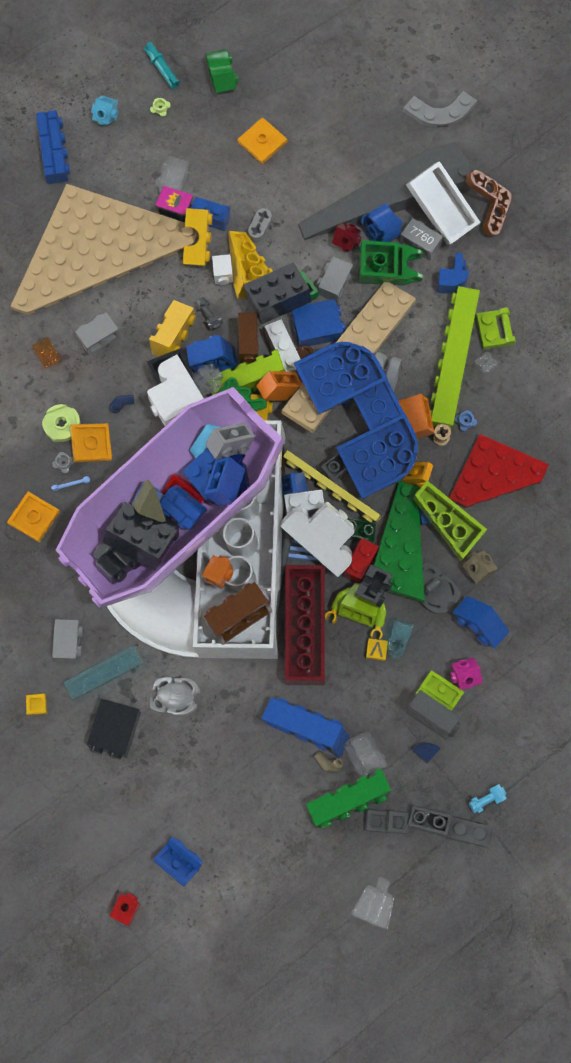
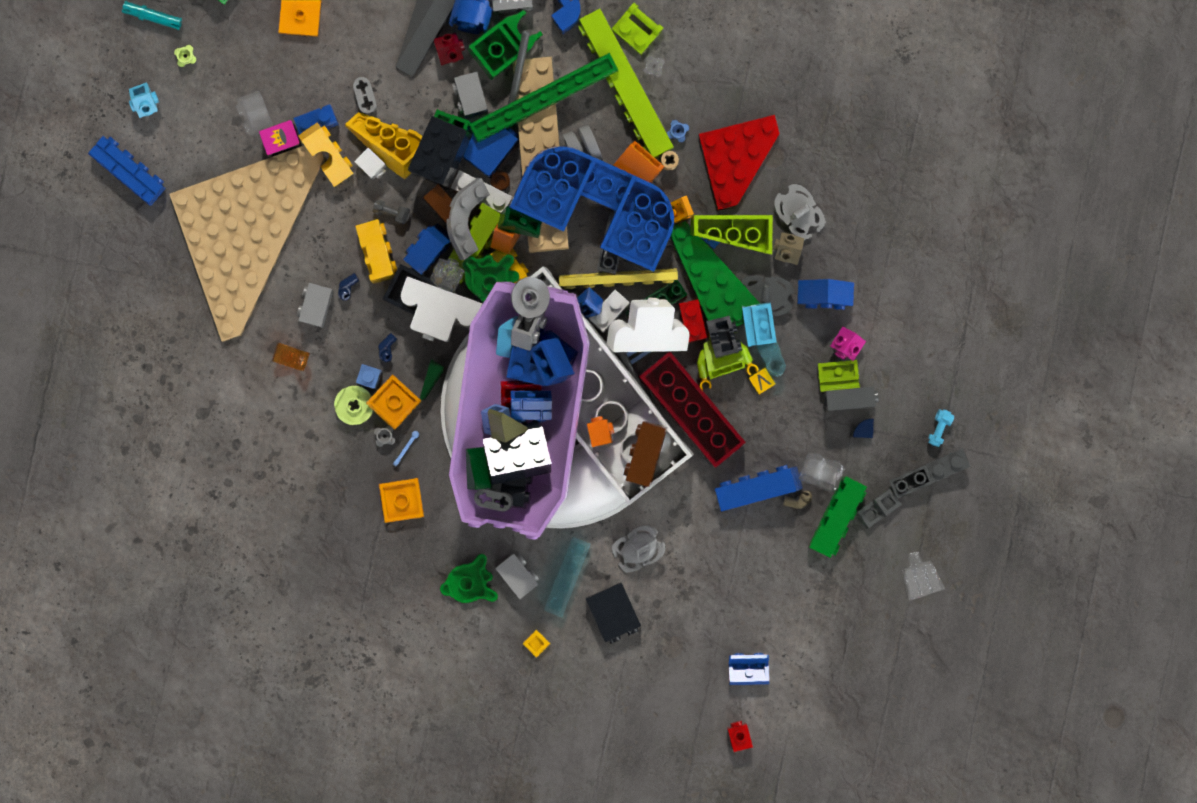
camera: 40 degrees left, 15 degrees up
(28, 617) = (468, 582): none -> green tile
(89, 410) = (369, 376): none -> medium blue brick
(97, 551) = (494, 495): none -> dark grey beam
(100, 521) = (477, 469): none -> dark green slope
(130, 338) = (345, 287): none -> dark blue arm
(130, 448) = (433, 374): none -> dark green slope
(248, 345) = (457, 223): none -> light grey plate
(258, 417) = (538, 299): none -> light grey dish
(291, 382) = (519, 223): none -> dark green slope
(351, 314) = (519, 67): none -> dark grey piece
(386, 317) = (543, 97): none -> green tile
(409, 601) = (759, 324): none -> medium azure plate
(510, 547) = (799, 210): none -> light grey shield

